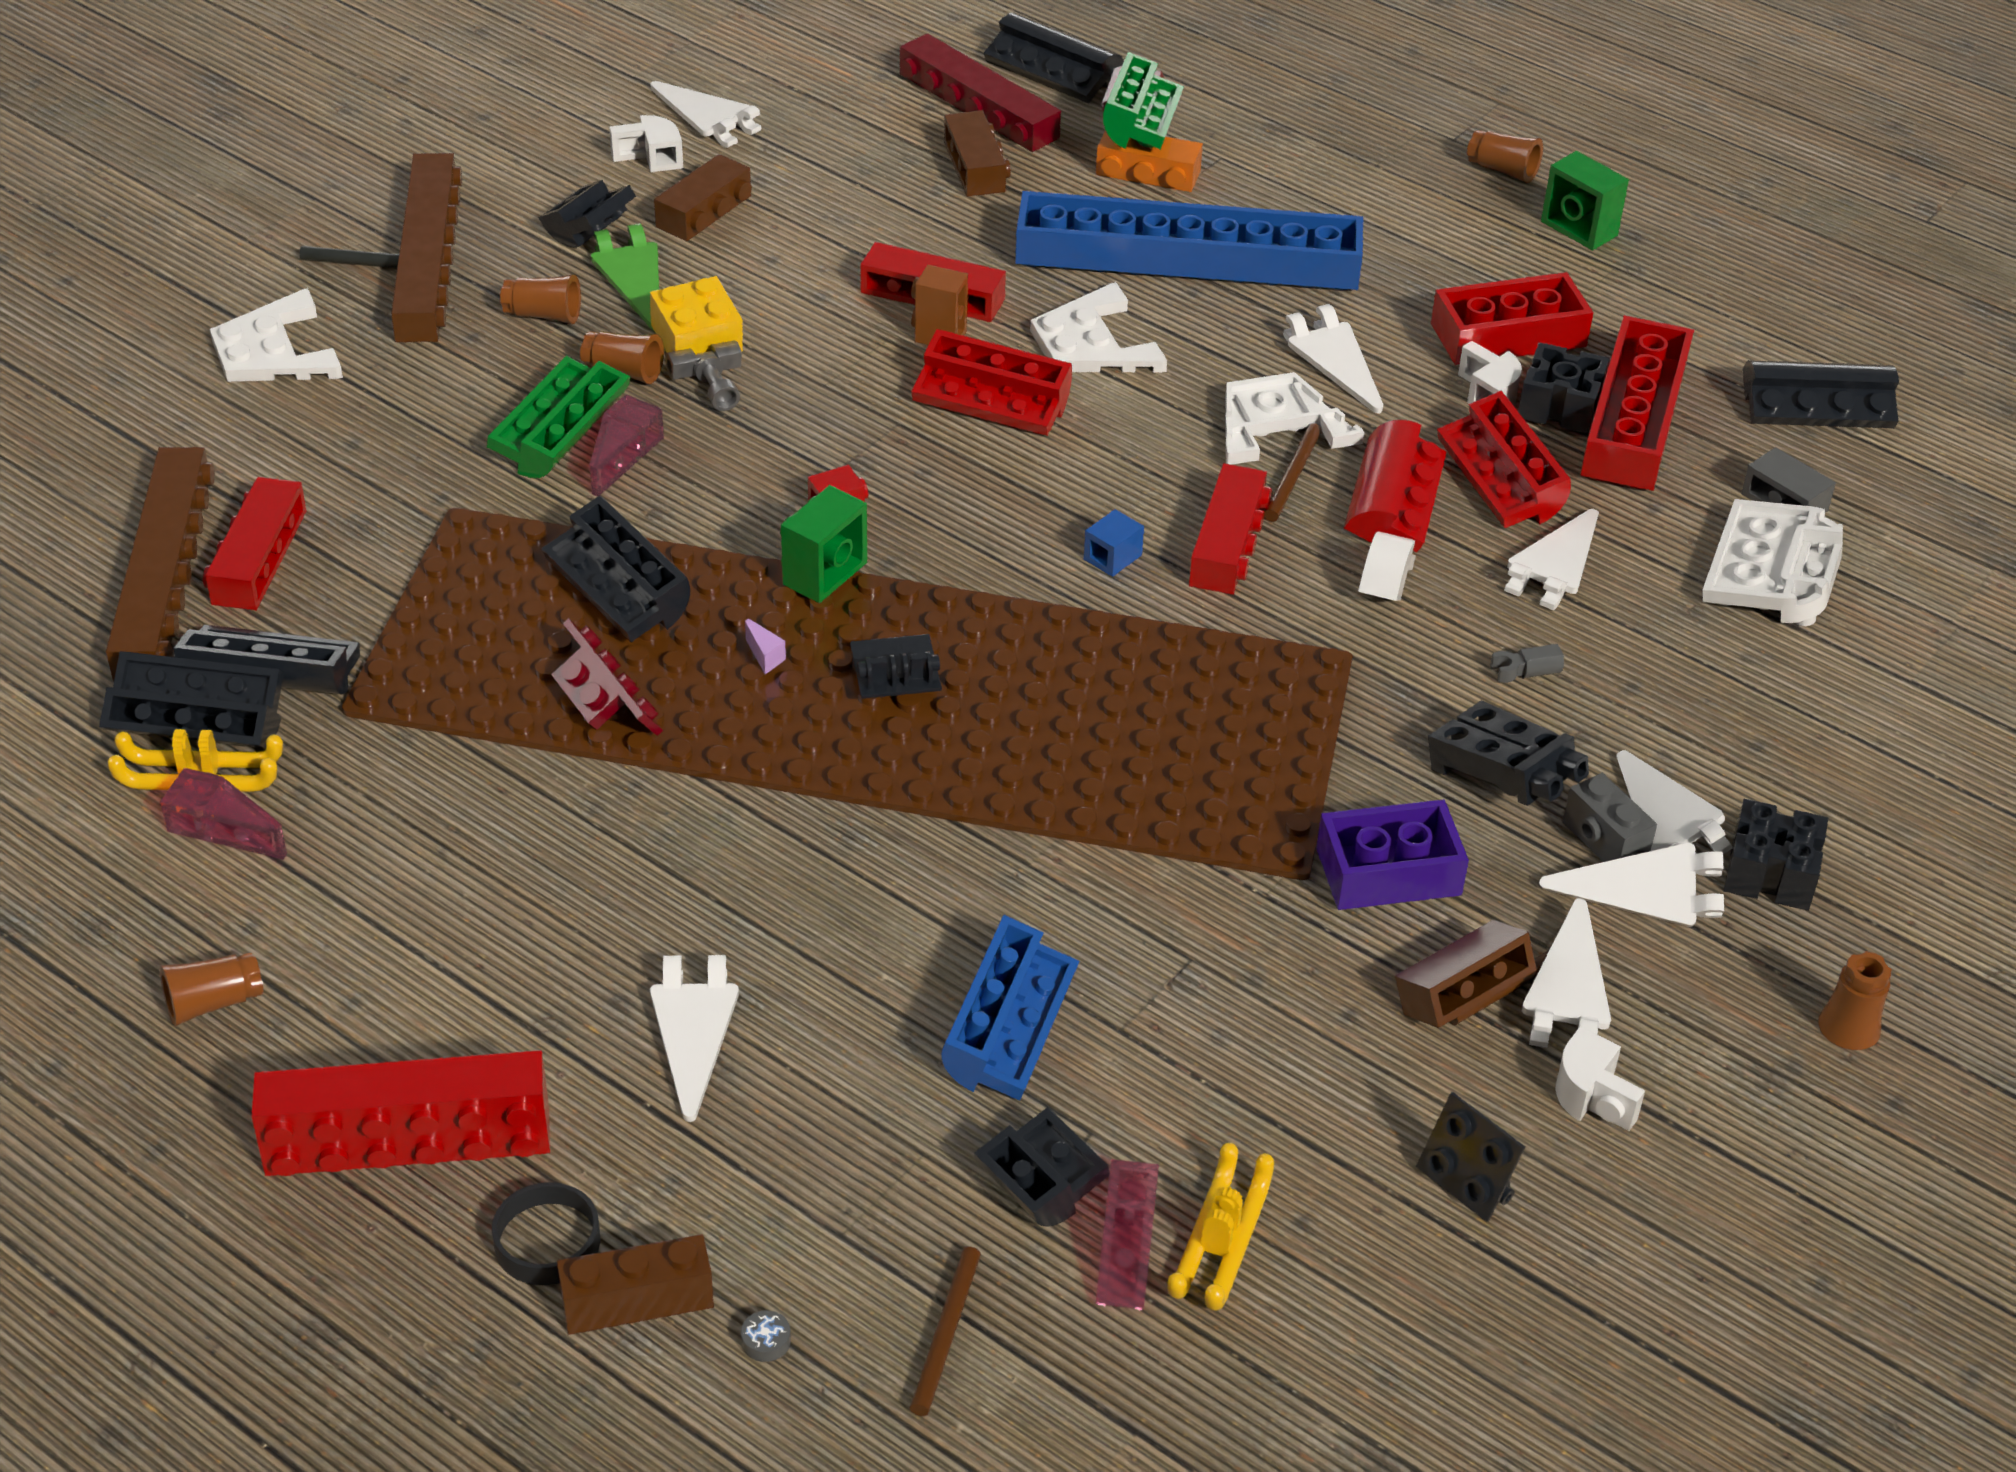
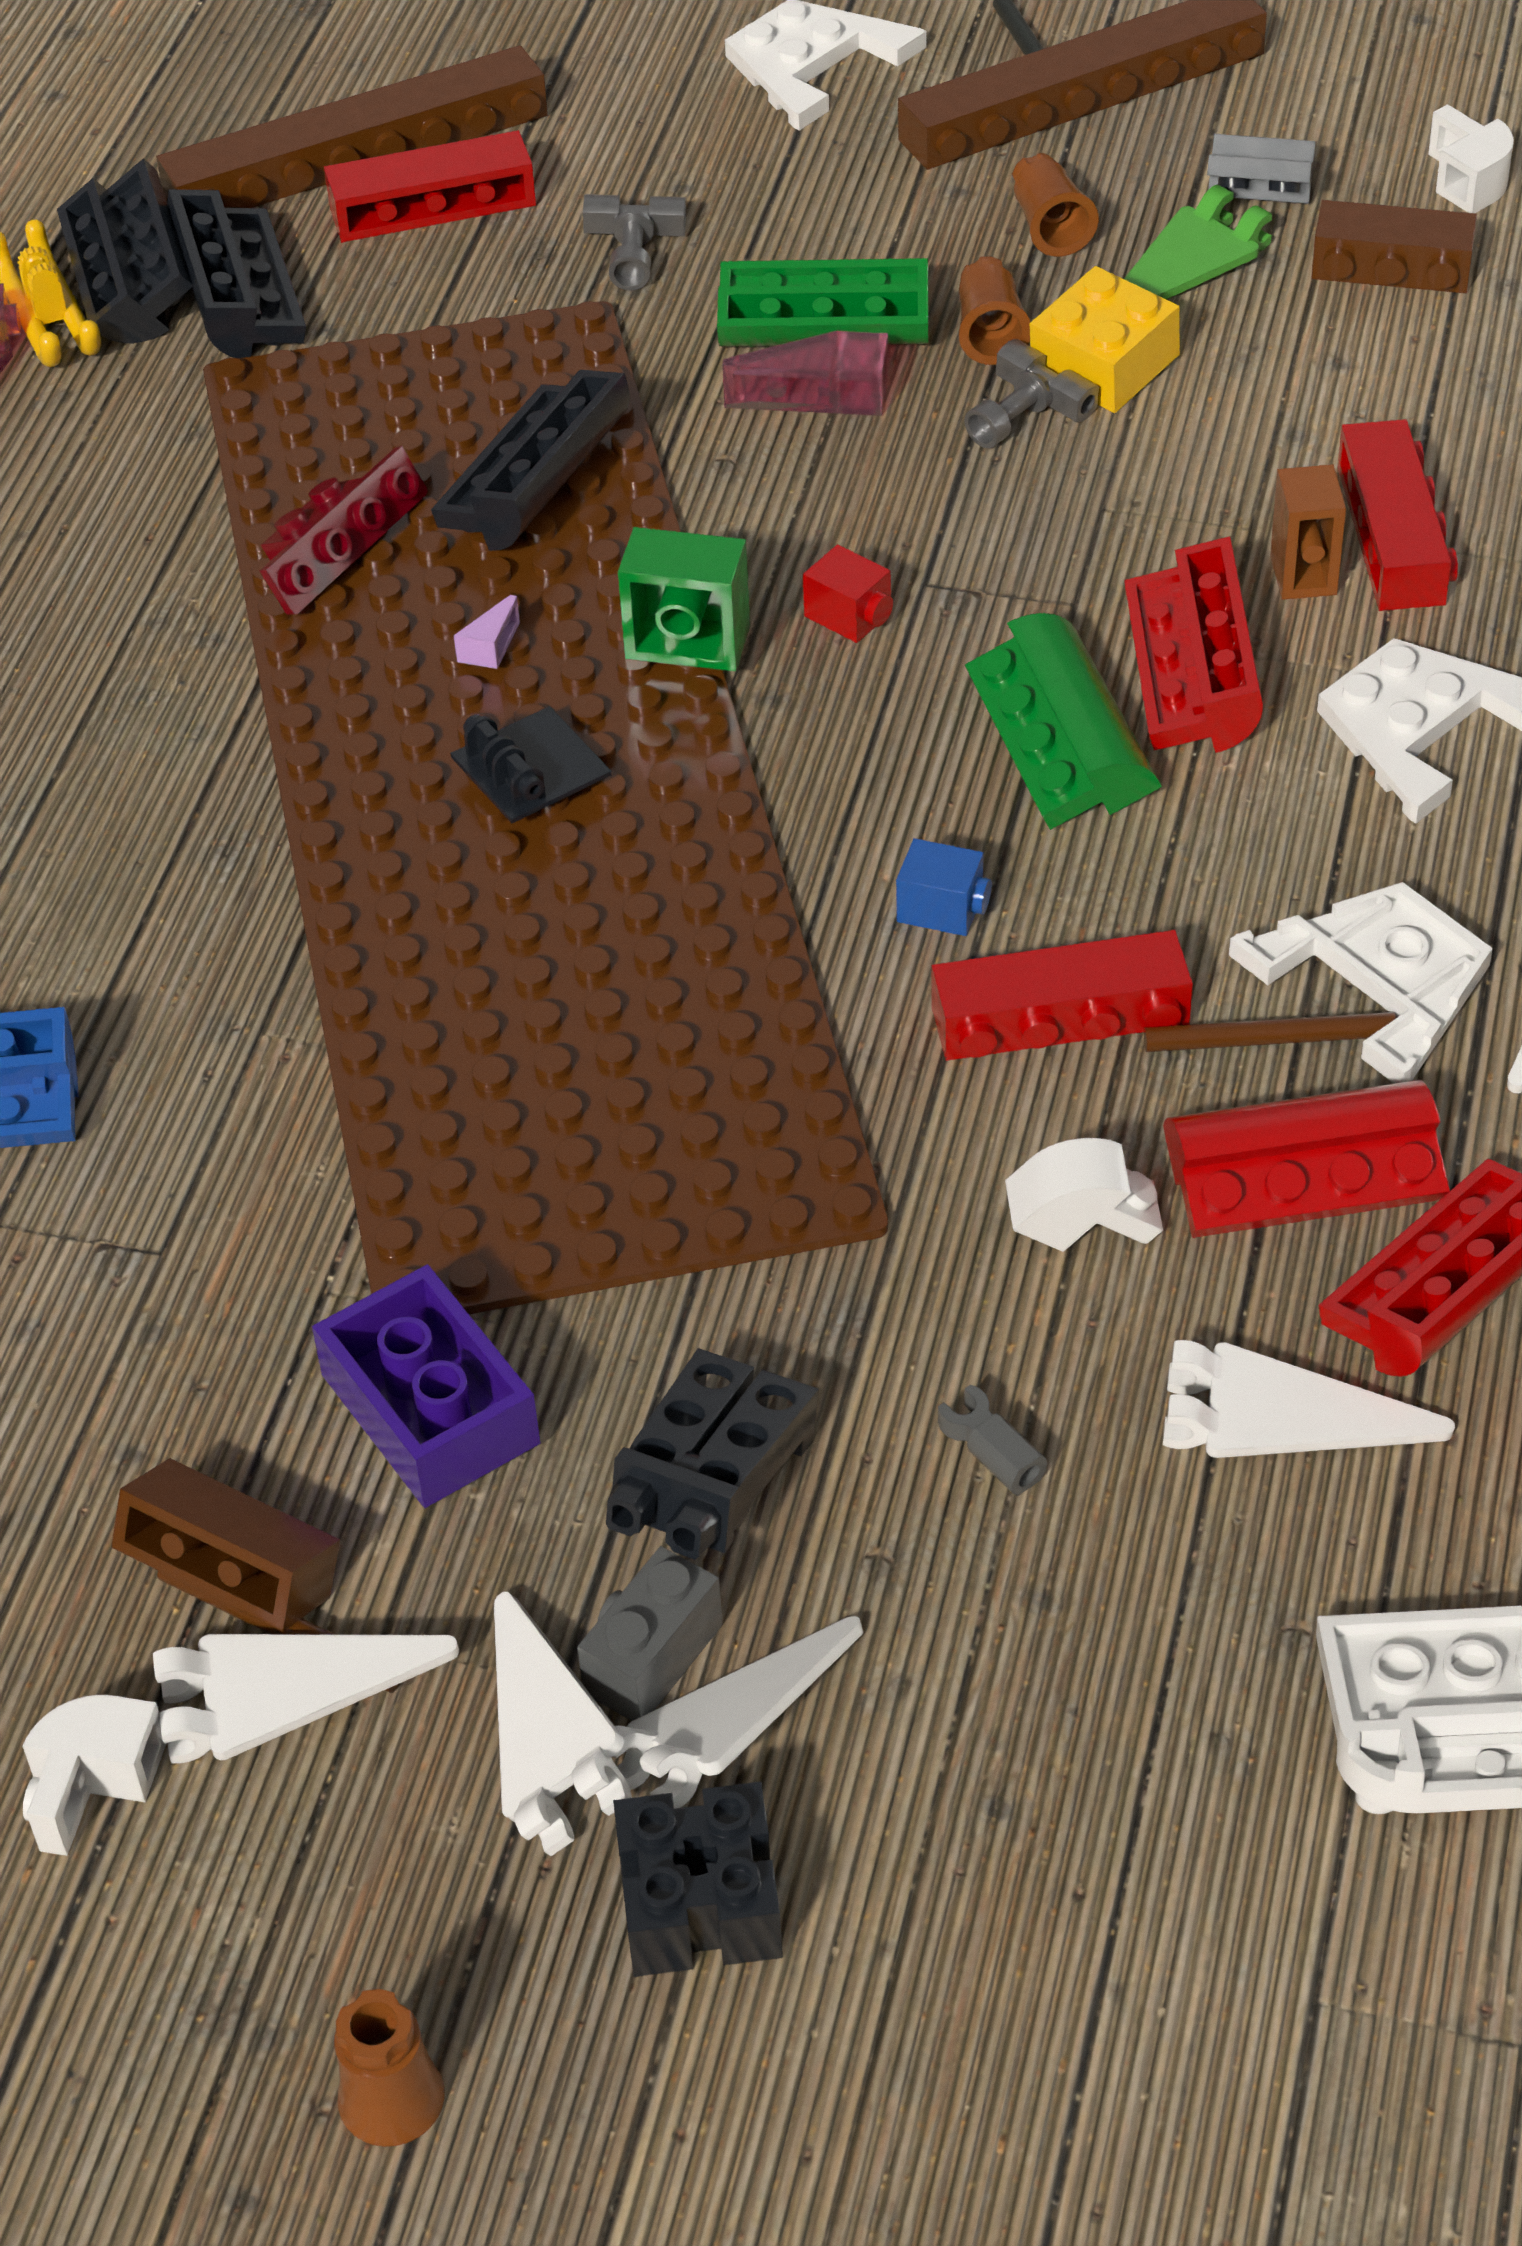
camera: 70 degrees right, 5 degrees up
(389, 469) = (633, 228): none -> flat silver bar
(1008, 456) = (1060, 721): none -> green brick

